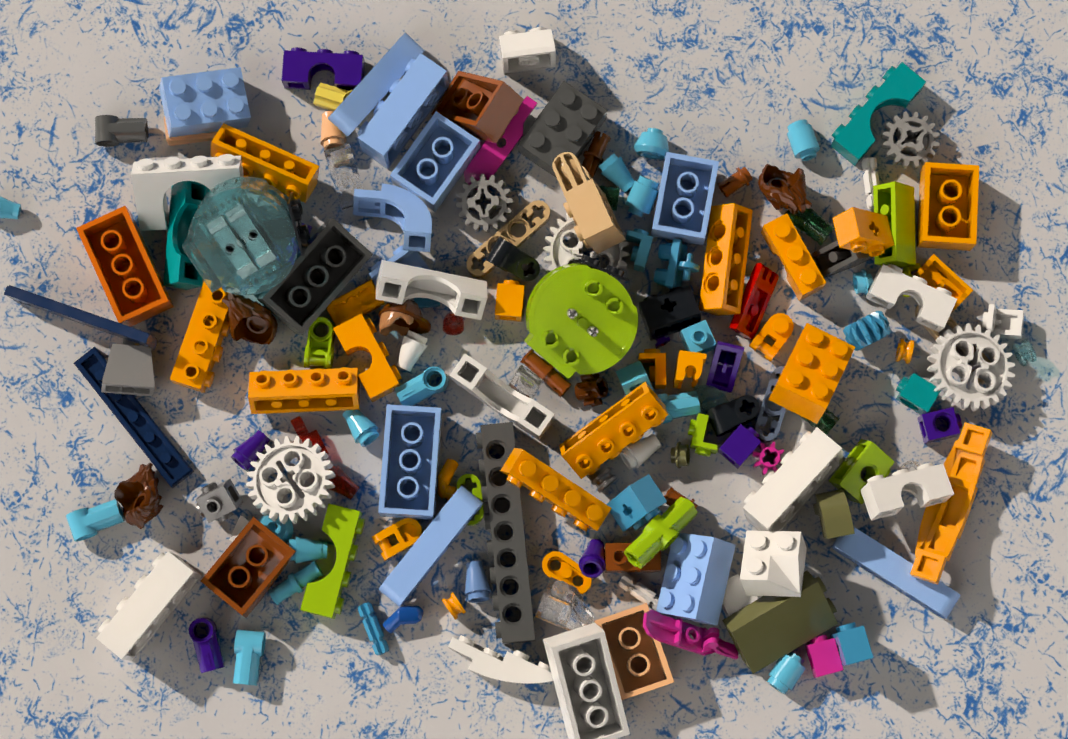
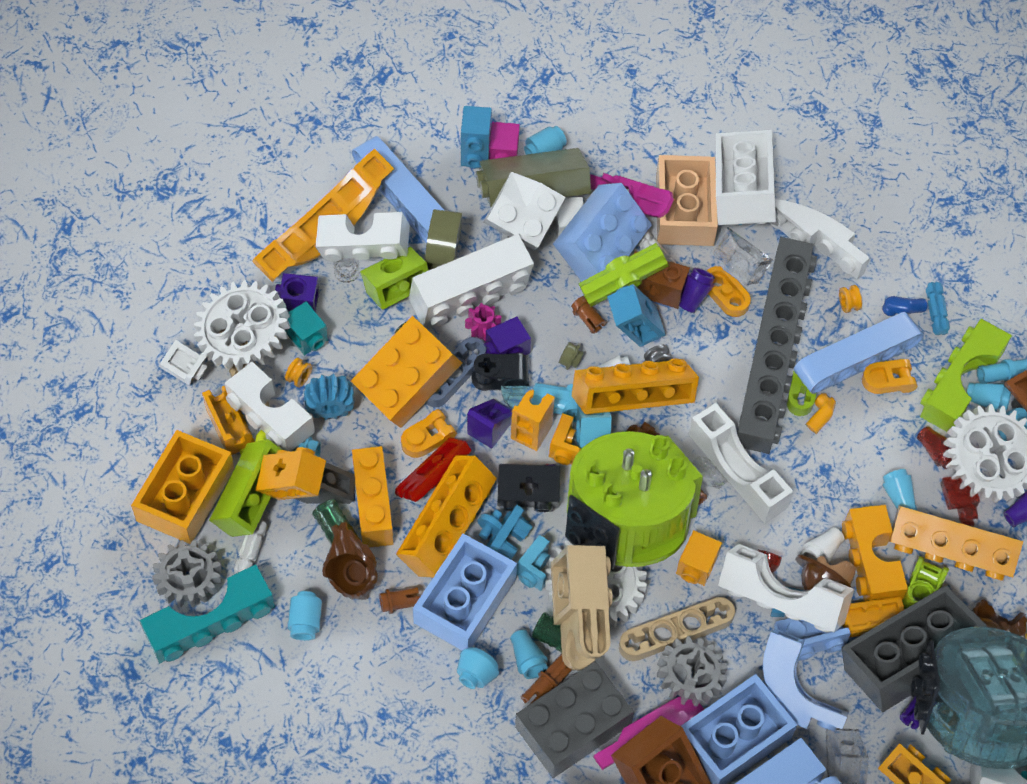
camera: 165 degrees left, 20 degrees down
(410, 462) = (858, 432): light blue brick -> none
(419, 388) = (823, 506): medium azure piece -> none
(477, 585) = (821, 309): medium blue cone -> none
(510, 259) = (682, 592): black piece -> none
(555, 489) = (716, 352): light orange brick -> none
(642, 196) = (510, 615): medium azure brick -> none
(697, 431) = (546, 364): lime bracket -> none
(698, 338) = (509, 447): medium azure brick -> none
(1024, 352) = (178, 330): clear light blue bush -> none

